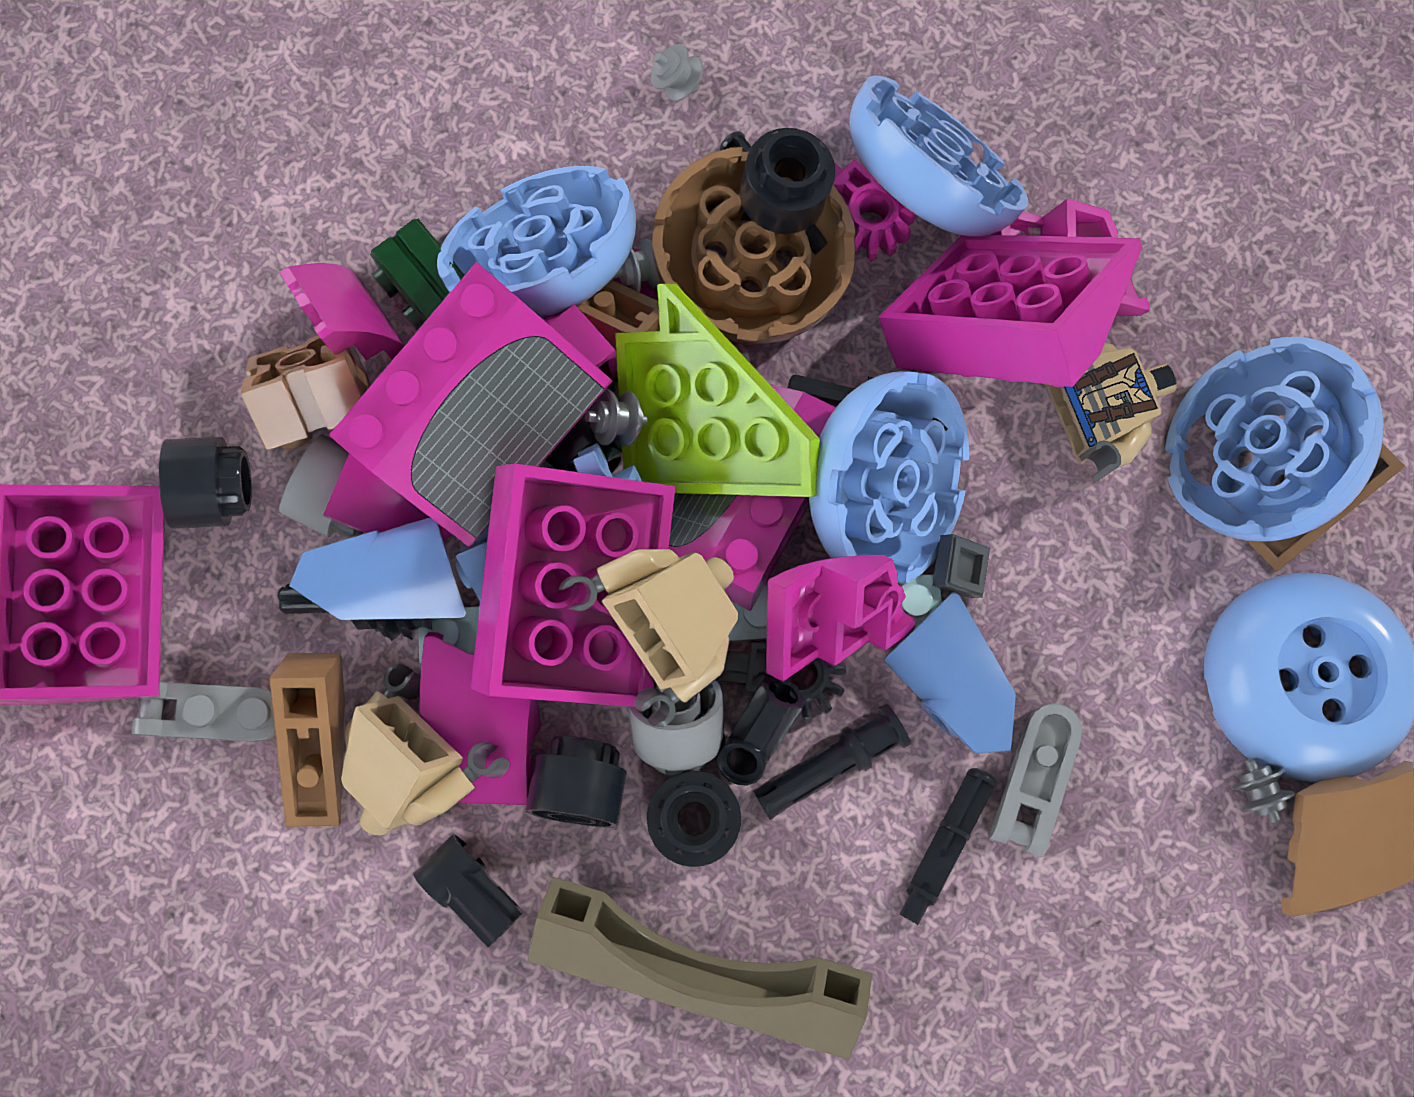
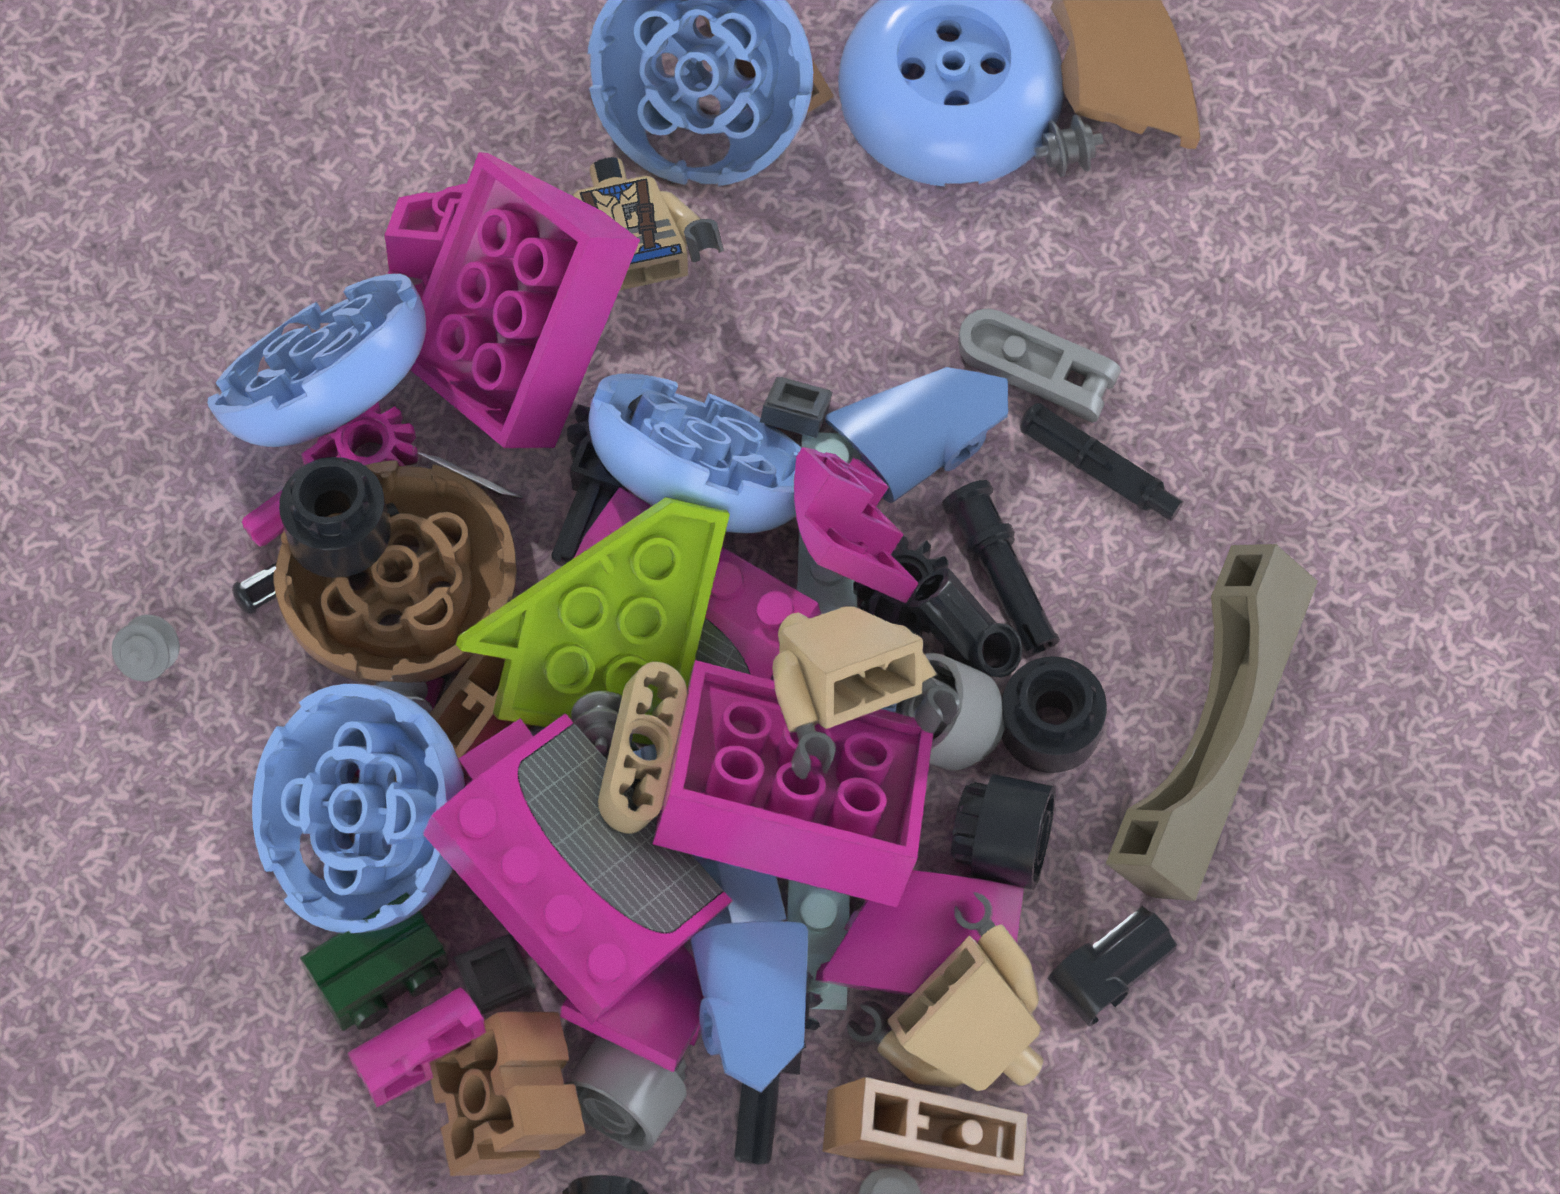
camera: 85 degrees left, 10 degrees down
(627, 439) = (625, 765): none -> tan beam
(854, 296) = (469, 474): none -> white sticker

